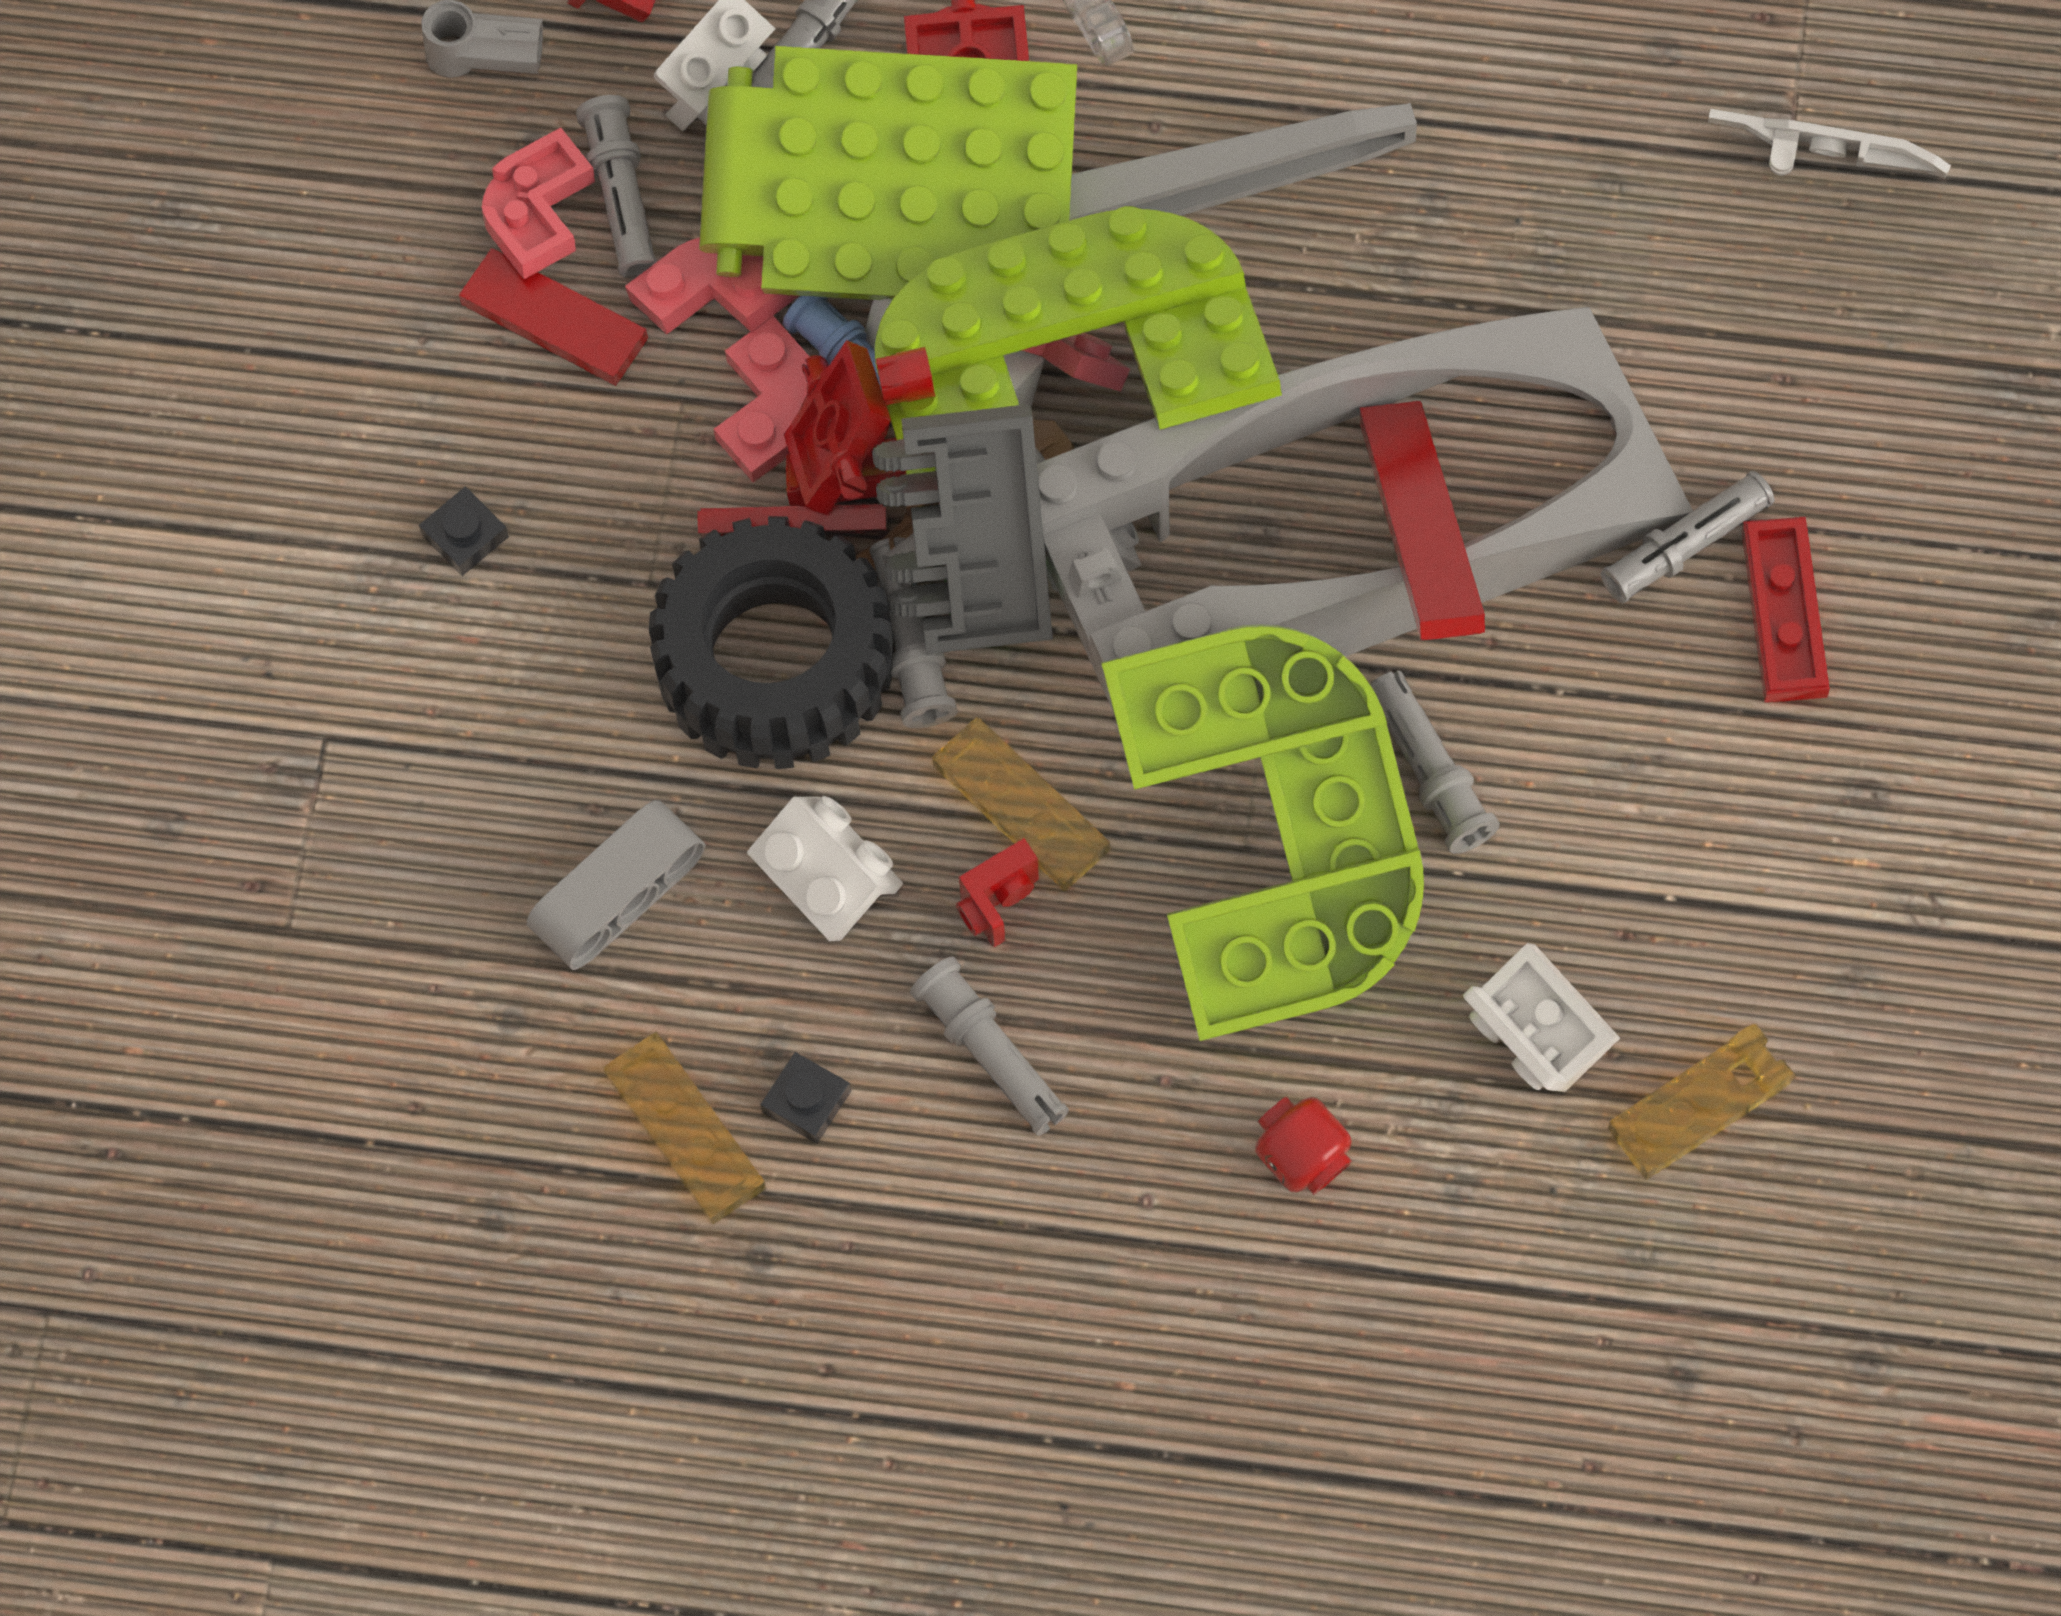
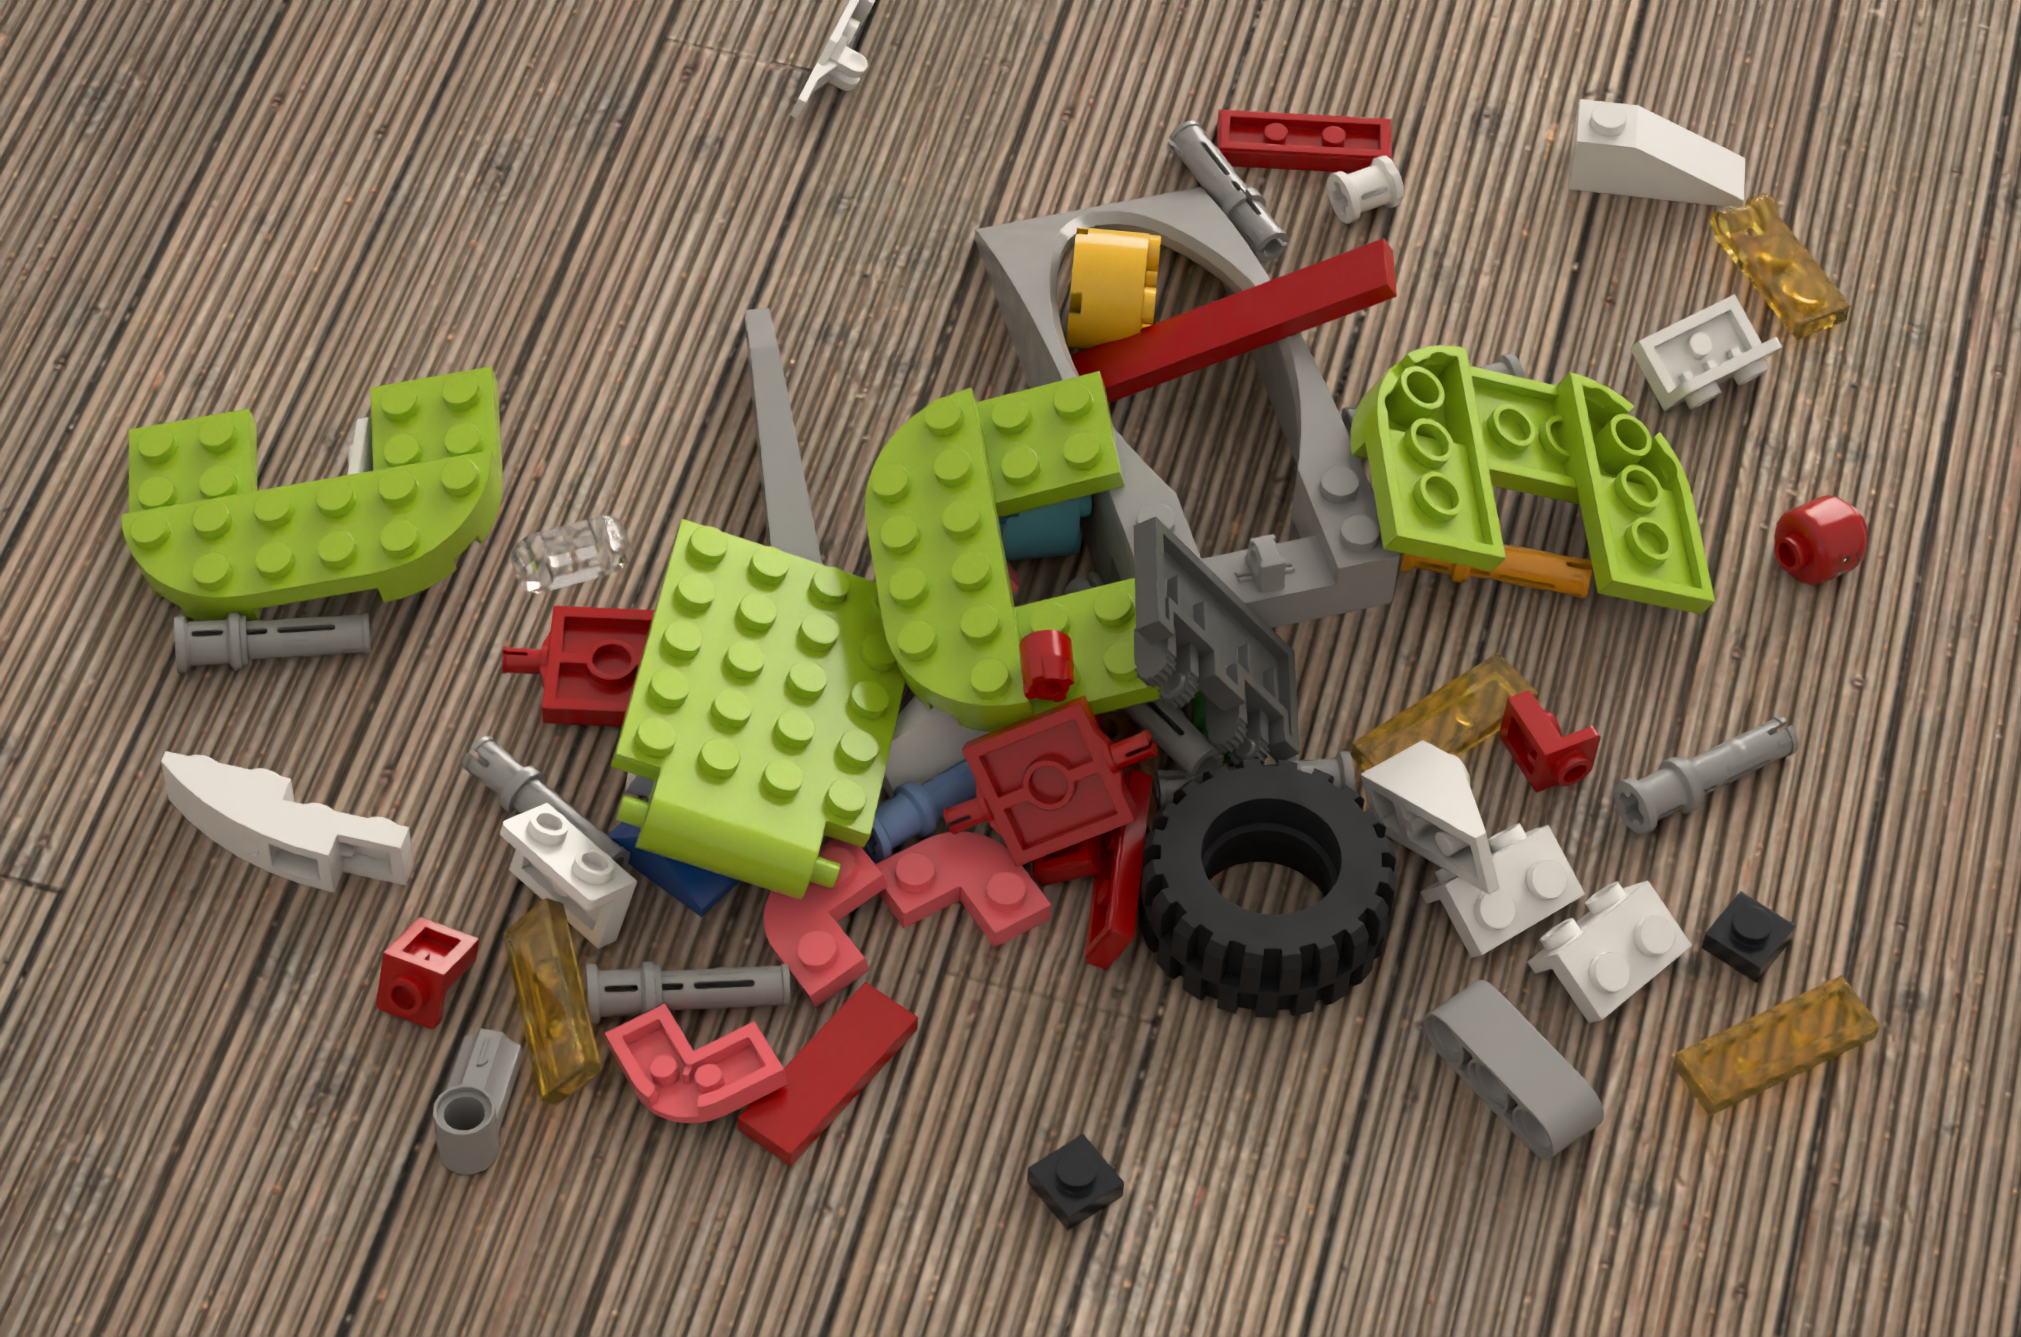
camera: 90 degrees left, 15 degrees down
(577, 85) = (551, 1001): none -> clear yellow tile
(765, 965) = (1612, 947): none -> white bracket
(873, 785) = (1432, 811): none -> white slope
(1228, 803) = (1521, 567): none -> light orange pin
(1492, 425) = (1111, 286): none -> yellow brick
(1713, 668) = (1365, 189): none -> white bush
(1822, 960) = (1647, 156): none -> white slope

